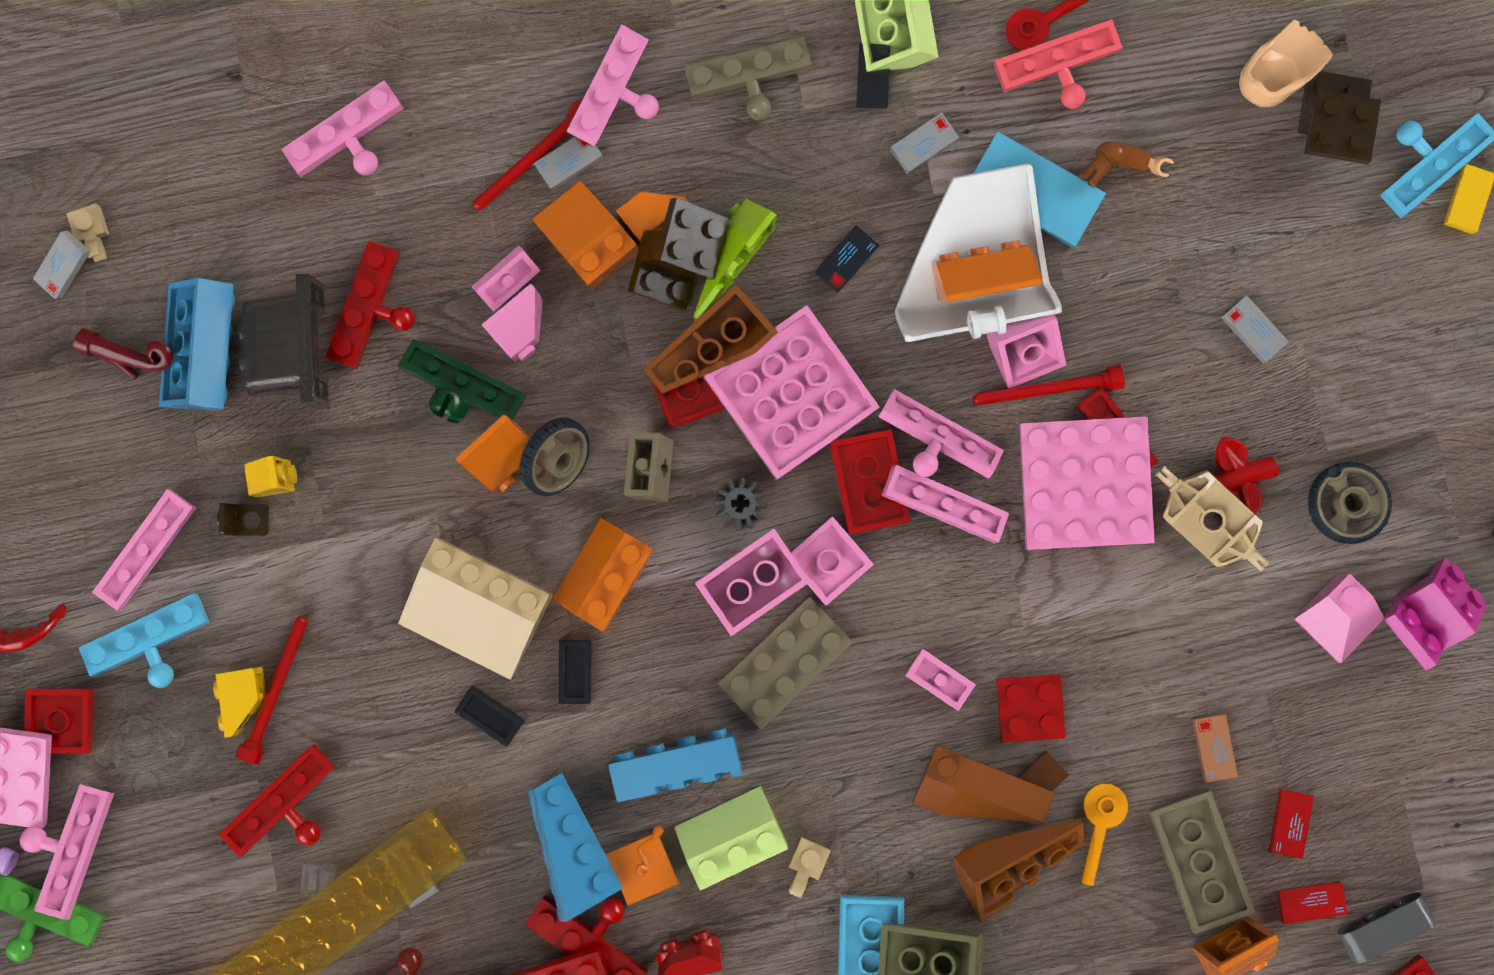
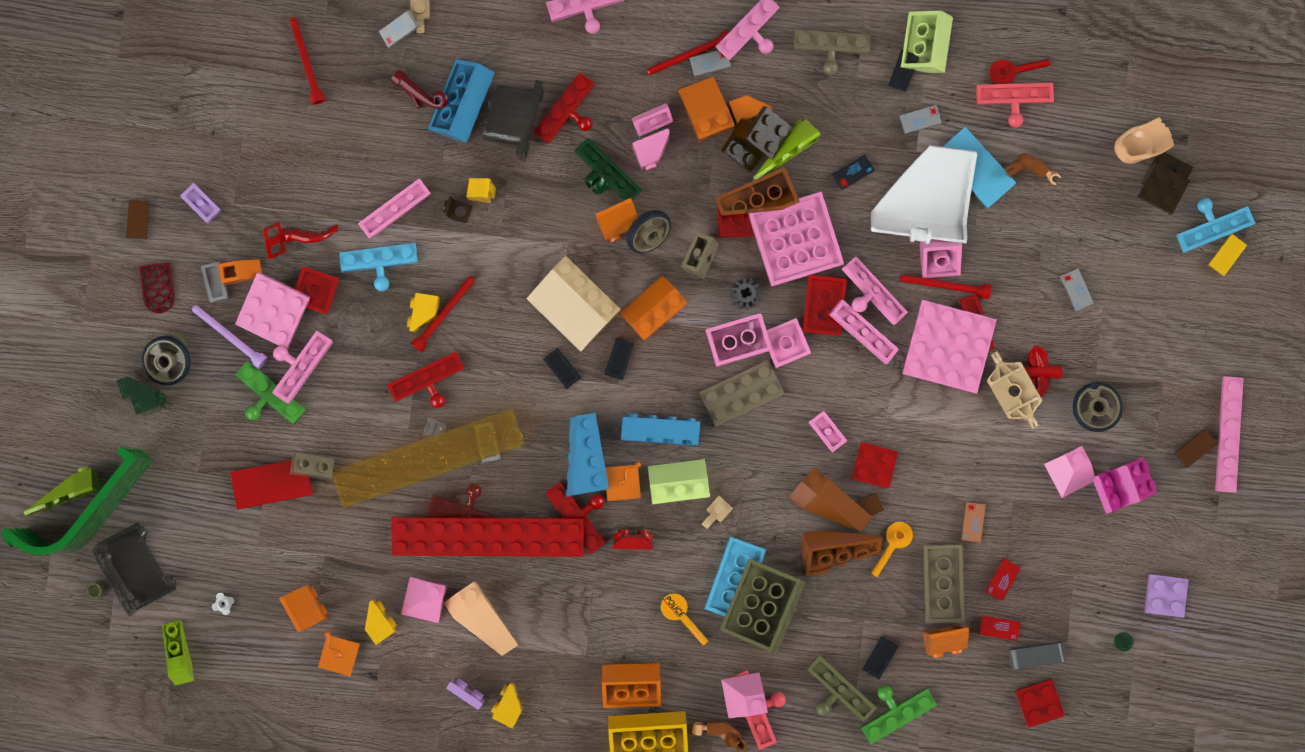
camera: 15 degrees right, 0 degrees up
(985, 272) = (930, 205): orange slope -> none

